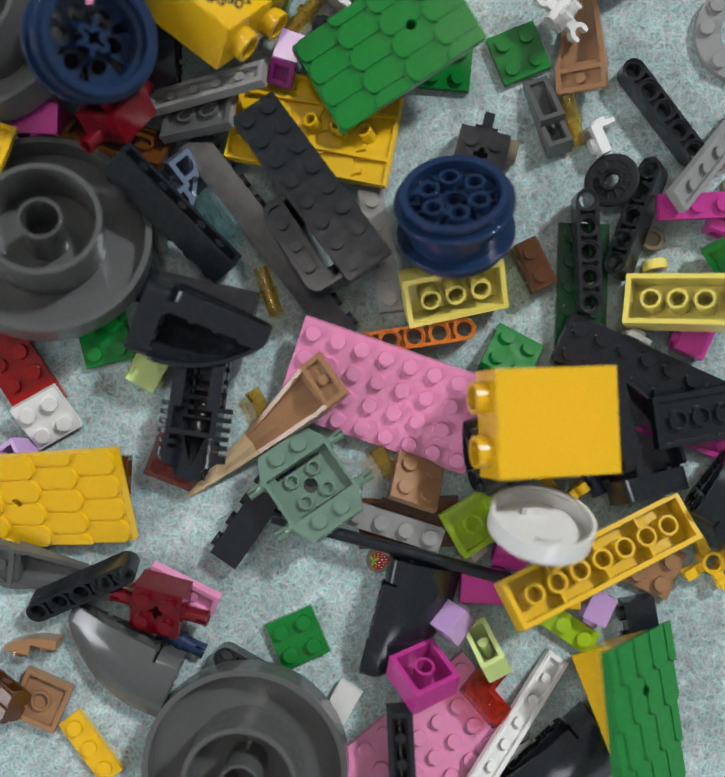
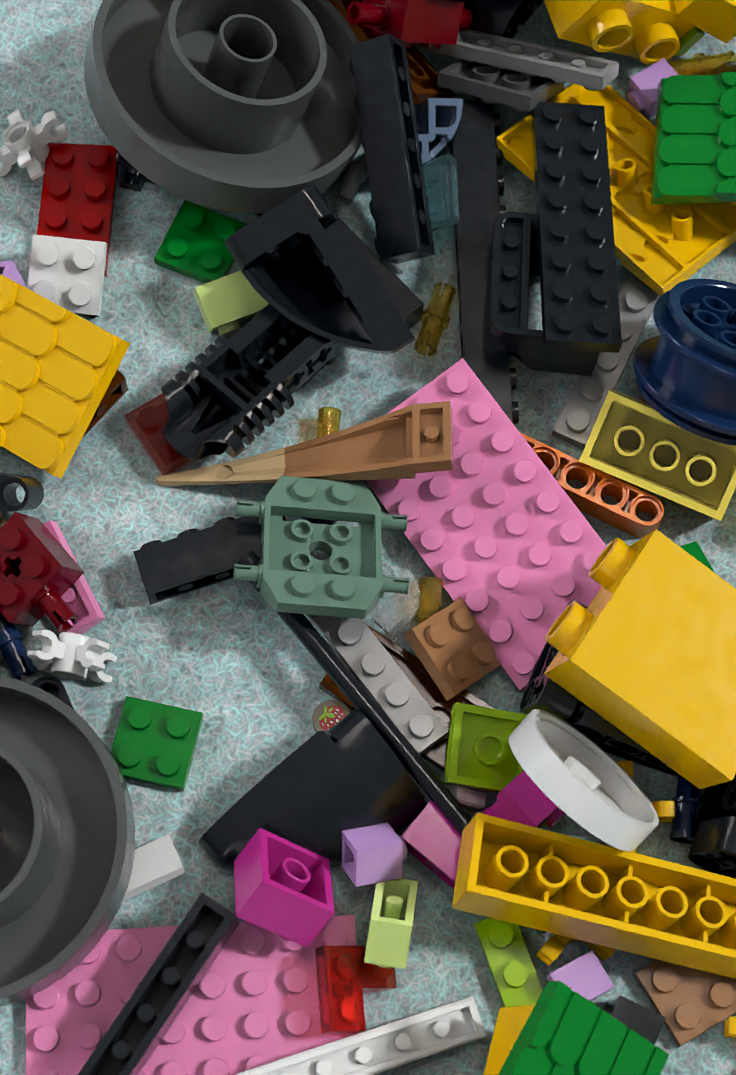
camera: 40 degrees right, 20 degrees down
(223, 631) = (72, 656): none -> white pin
(281, 72) = (628, 101): magenta tile -> none

